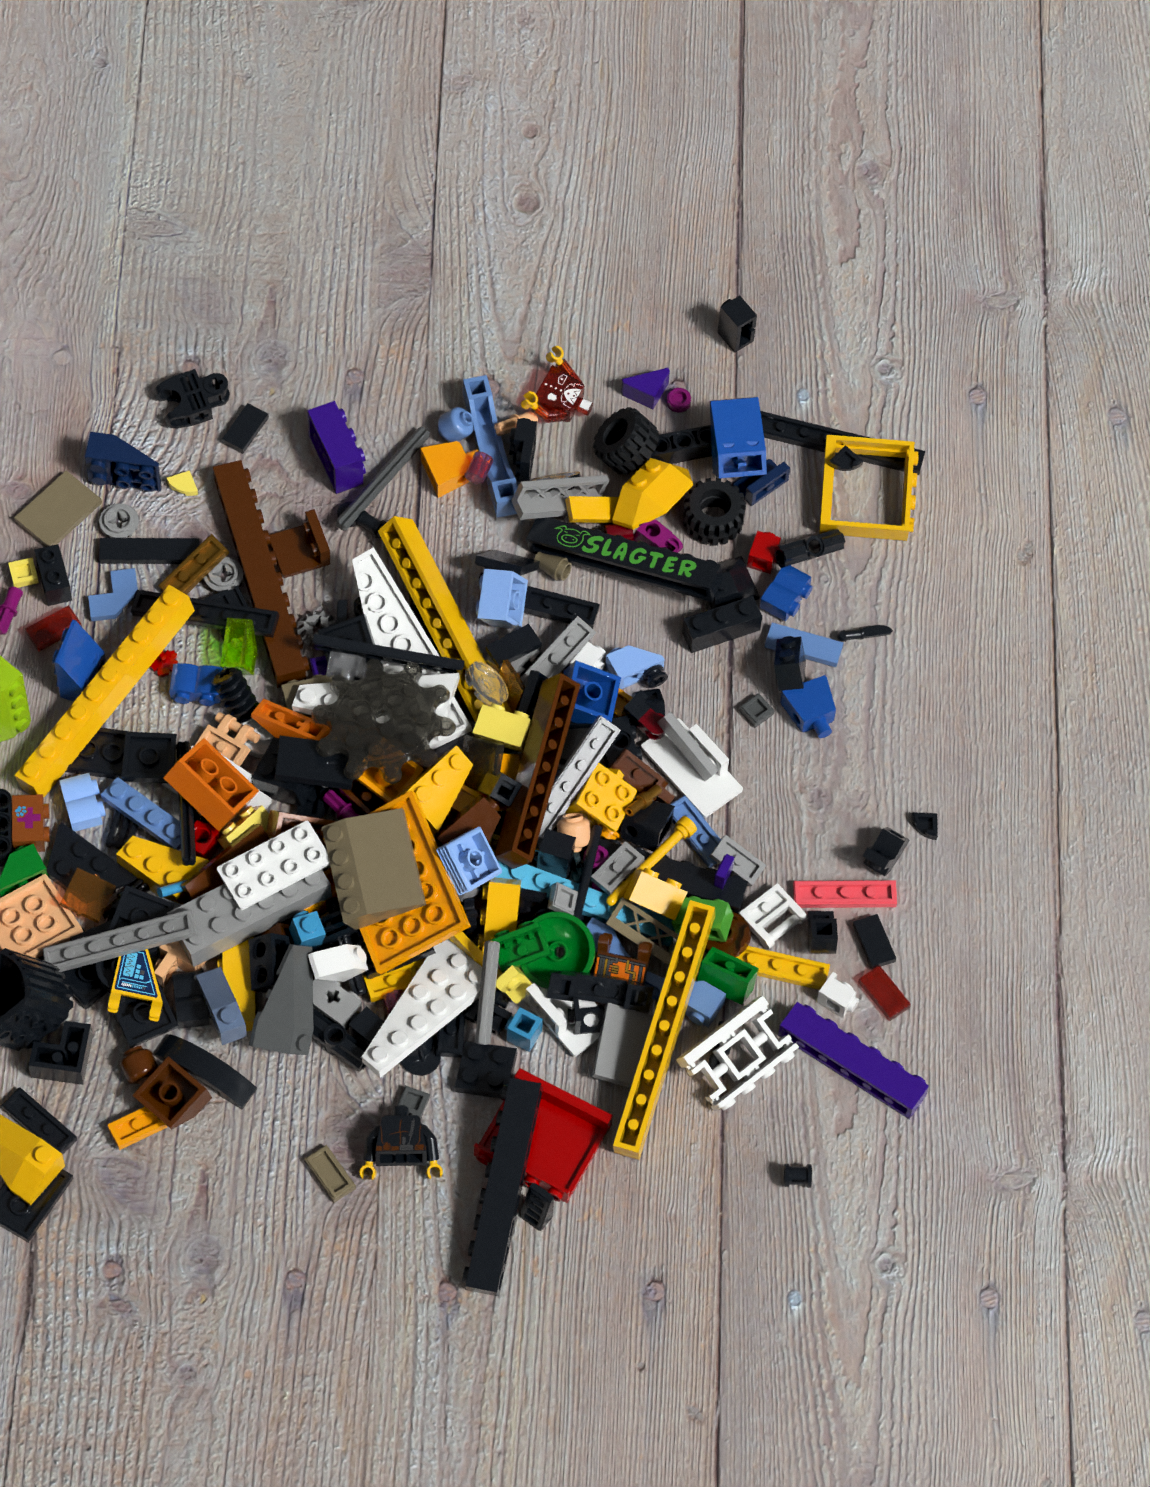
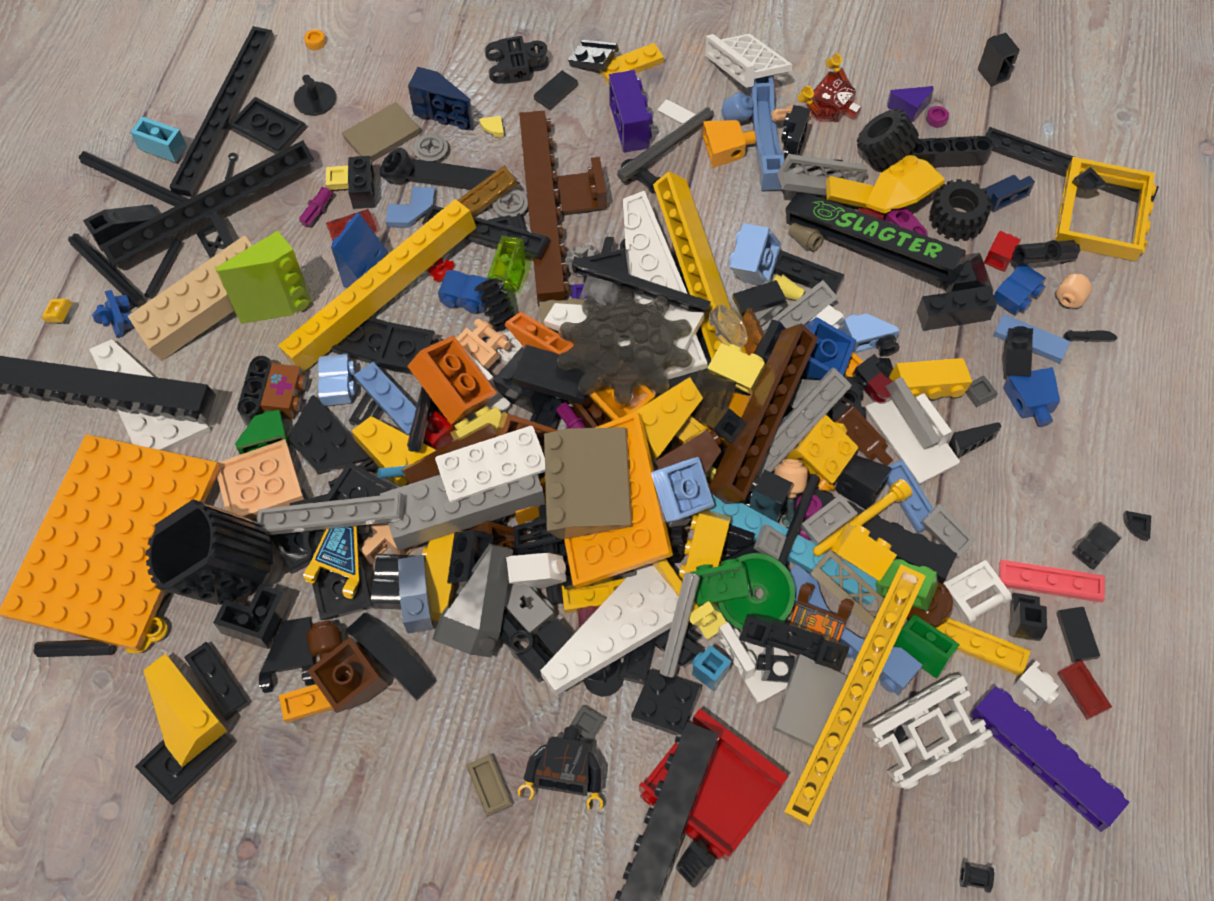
camera: 15 degrees right, 0 degrees up
(87, 549) = (396, 166): none -> black piece
(87, 895) = (316, 465): clear orange piece -> none
(105, 1083) = (288, 653): none -> black flag
(280, 379) = (593, 54): none -> black plate
(307, 929) = (512, 531): dark azure brick -> none
(324, 382) = (635, 60): none -> yellow plate
(386, 435) = (675, 111): none -> white sticker
(442, 369) = (743, 55): none -> white fence
(478, 467) = (752, 143): clear pink piece -> none
(505, 561) = (778, 230): black tile -> none
(542, 627) = (789, 288): none -> light yellow cone
(643, 800) = (862, 458): pearl gold bar -> none
(705, 704) = (934, 377): none -> yellow brick
(724, 871) = (935, 539): dark purple tile -> none
(737, 438) = (990, 148): blue slope -> none
(751, 763) = (970, 439): none -> black slope
(842, 586) = (1074, 290): none -> light nougat head

